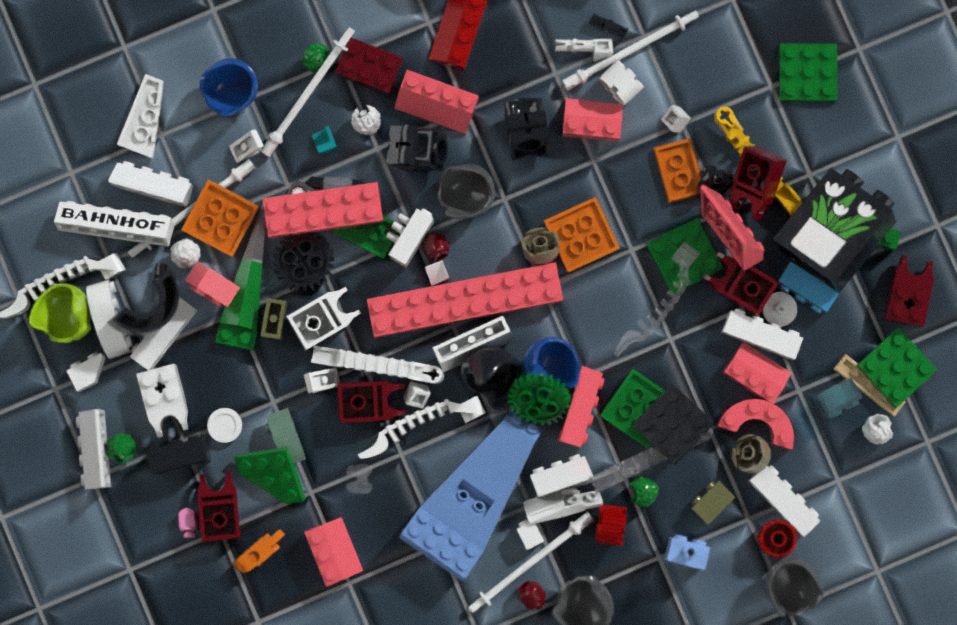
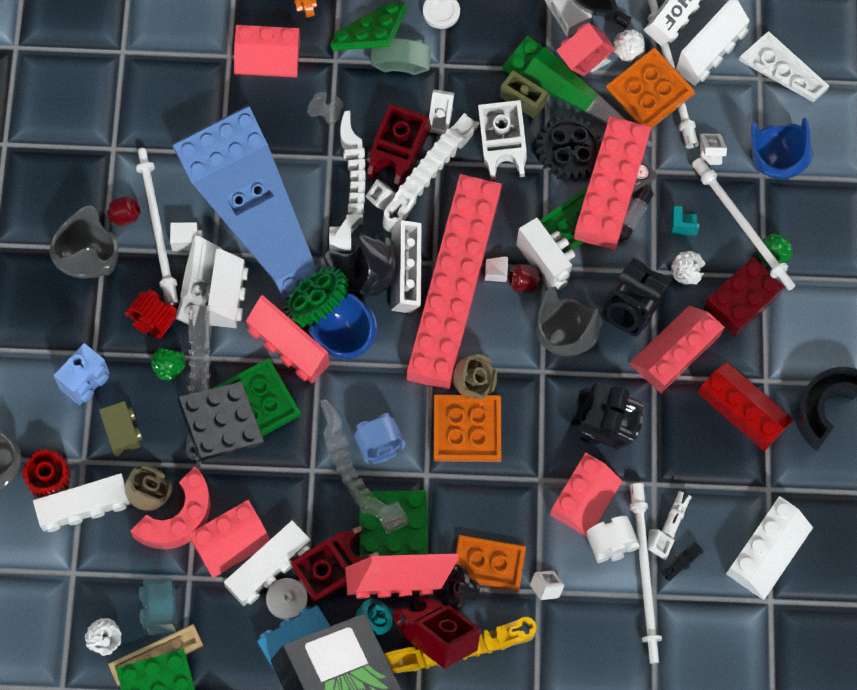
camera: 115 degrees right, 15 degrees down
(626, 296) = (379, 439): none -> medium blue brick
(765, 232) = (377, 615): none -> teal piece

